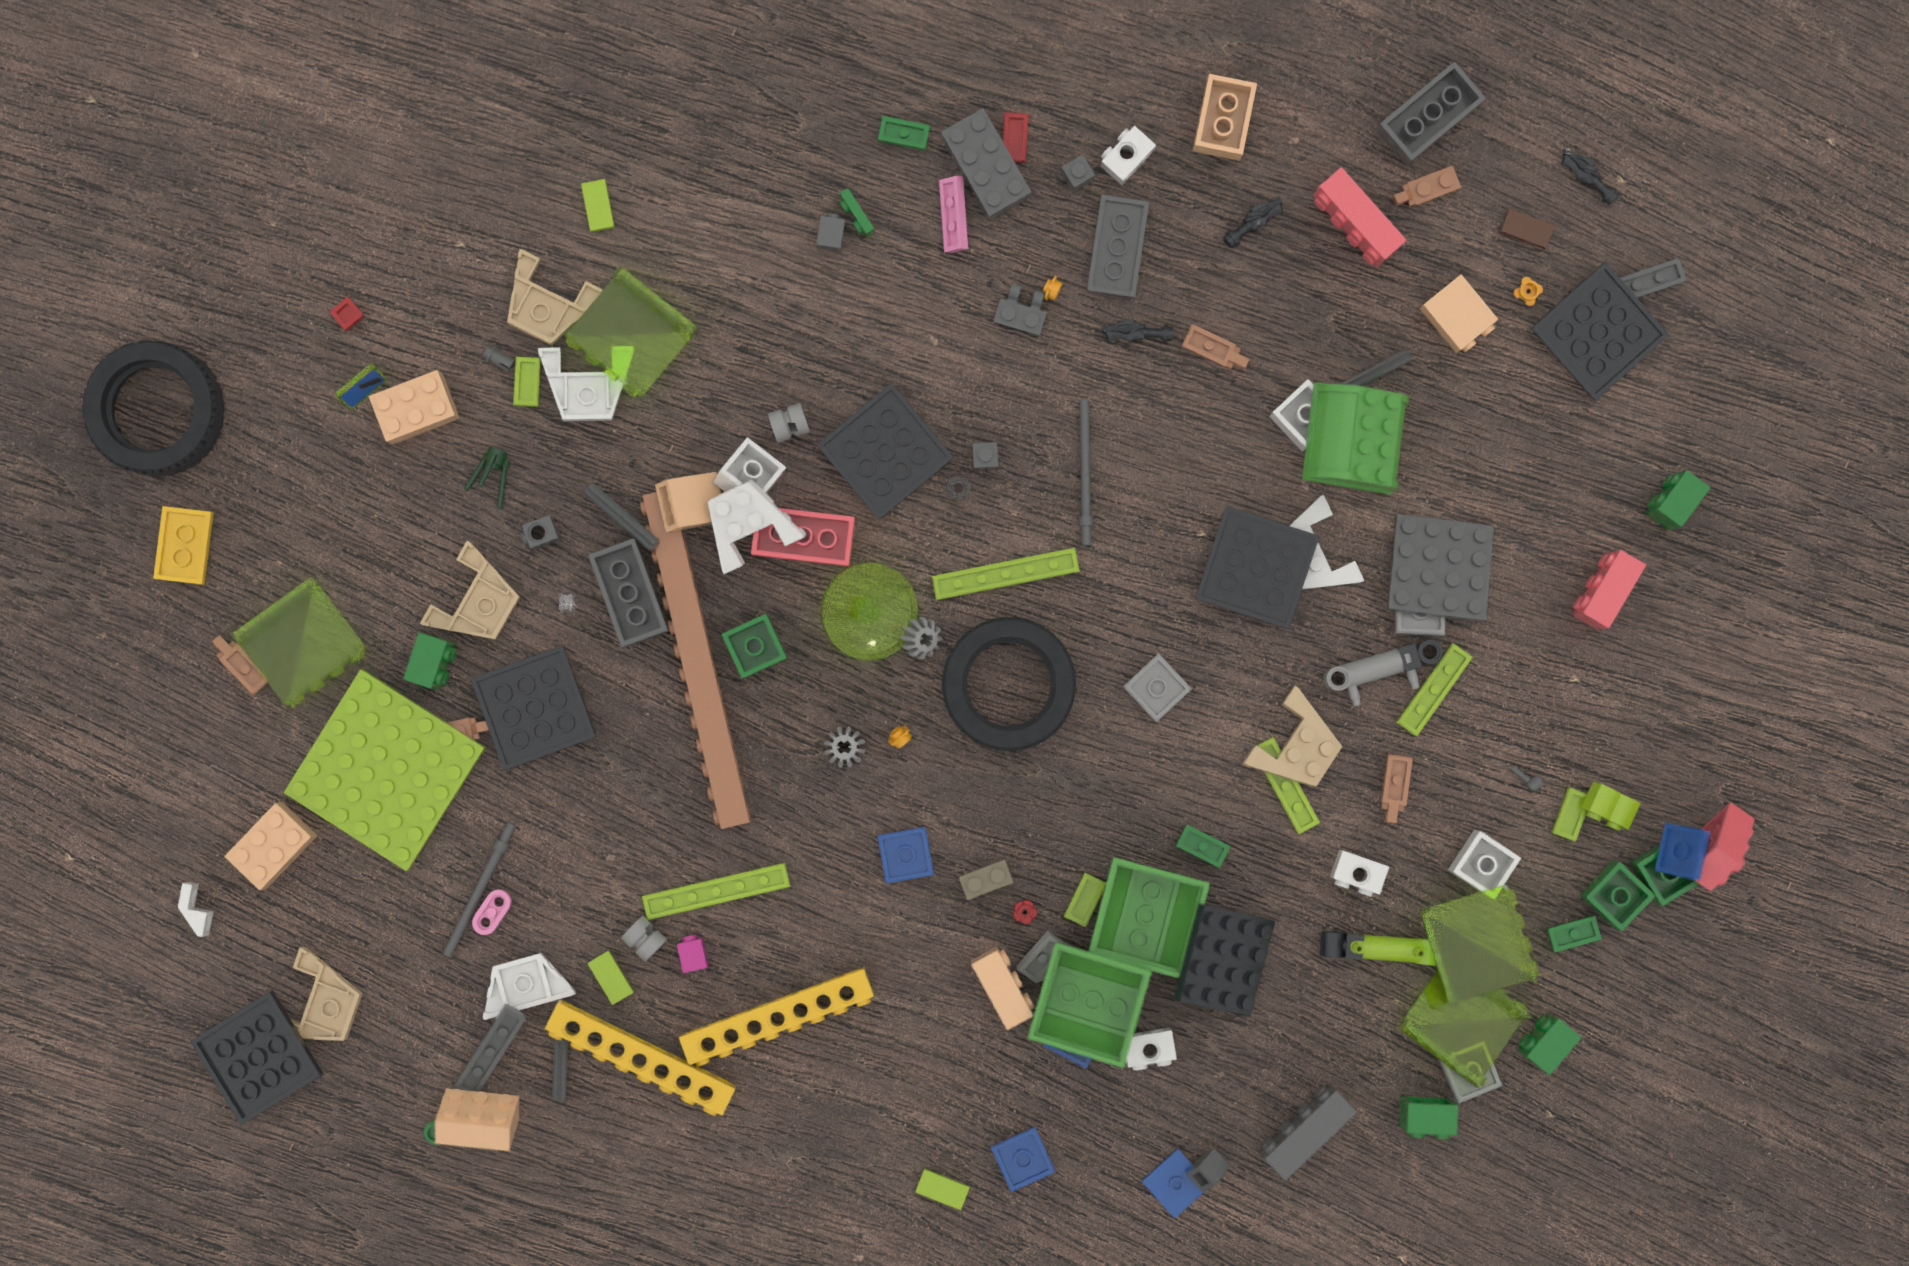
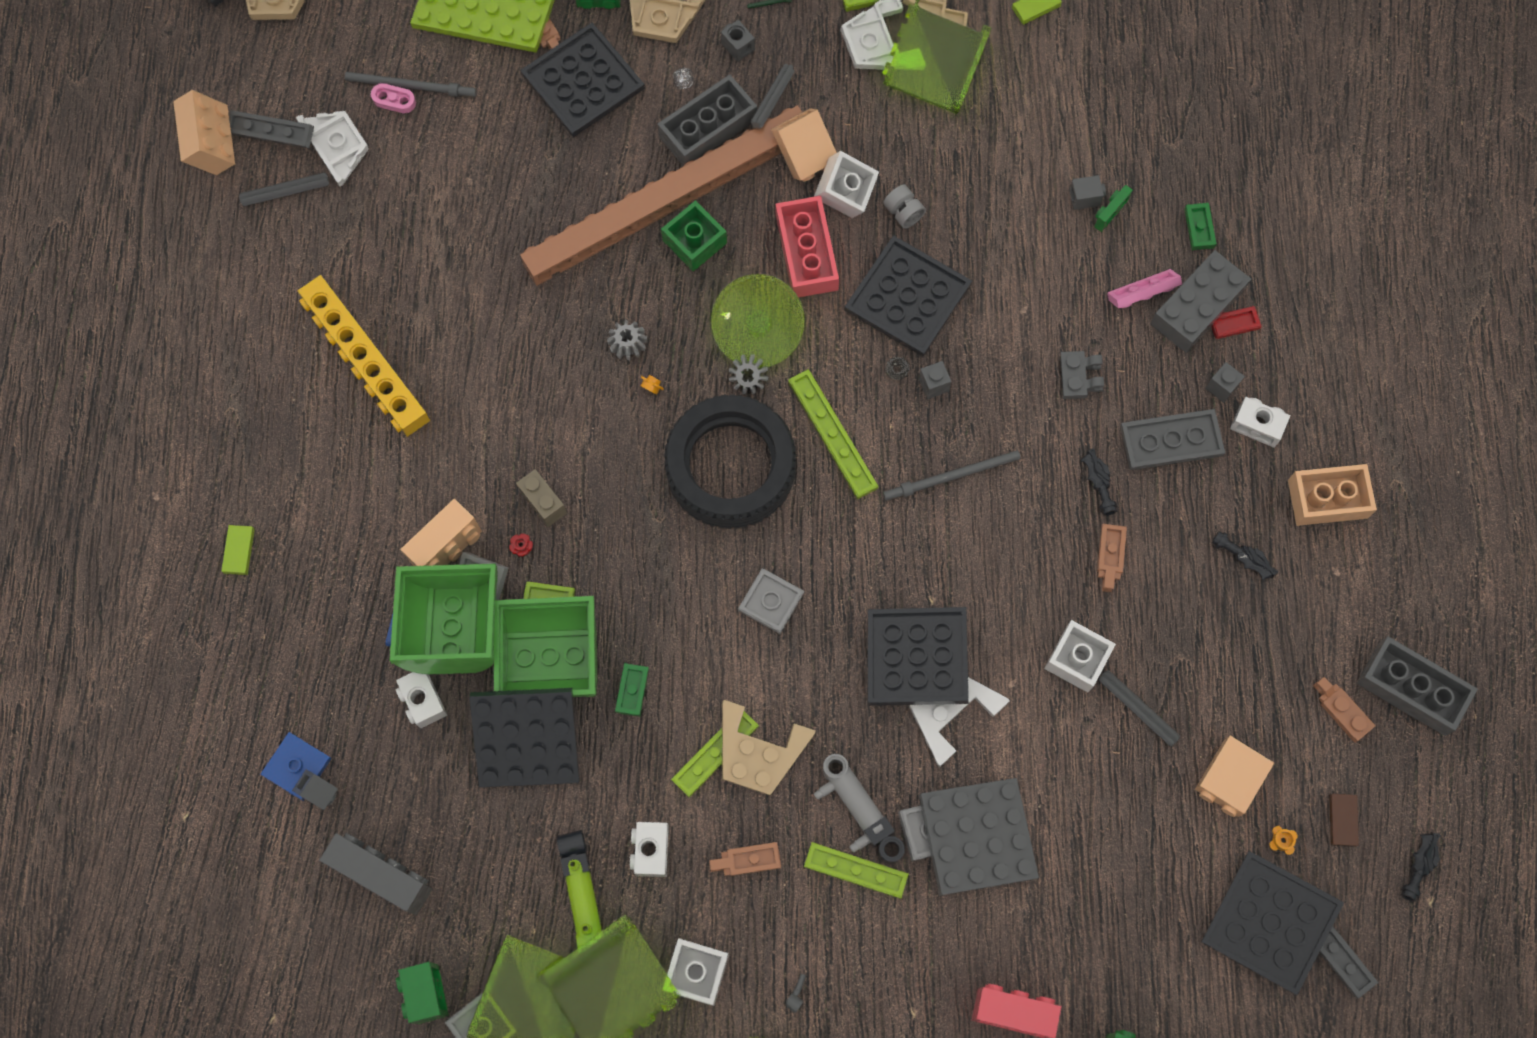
camera: 75 degrees right, 15 degrees down
(610, 977) = (361, 210): lime tile -> none
(634, 1045) = (304, 173): yellow brick -> none
(644, 938) = (404, 221): light grey wheel -> none
(692, 953) = (401, 268): dark pink brick -> none
(716, 891) = (464, 274): lime tile -> none
(743, 513) = (808, 181): white wing -> none
(905, 855) = (543, 422): blue plate -> none
(1023, 1159) = (284, 613): blue plate -> none
(1052, 288) = (1110, 393): light orange plate -> none
(1354, 437) = (1076, 707): bright green container -> none
(1358, 218) = (1288, 647): coral brick -> none

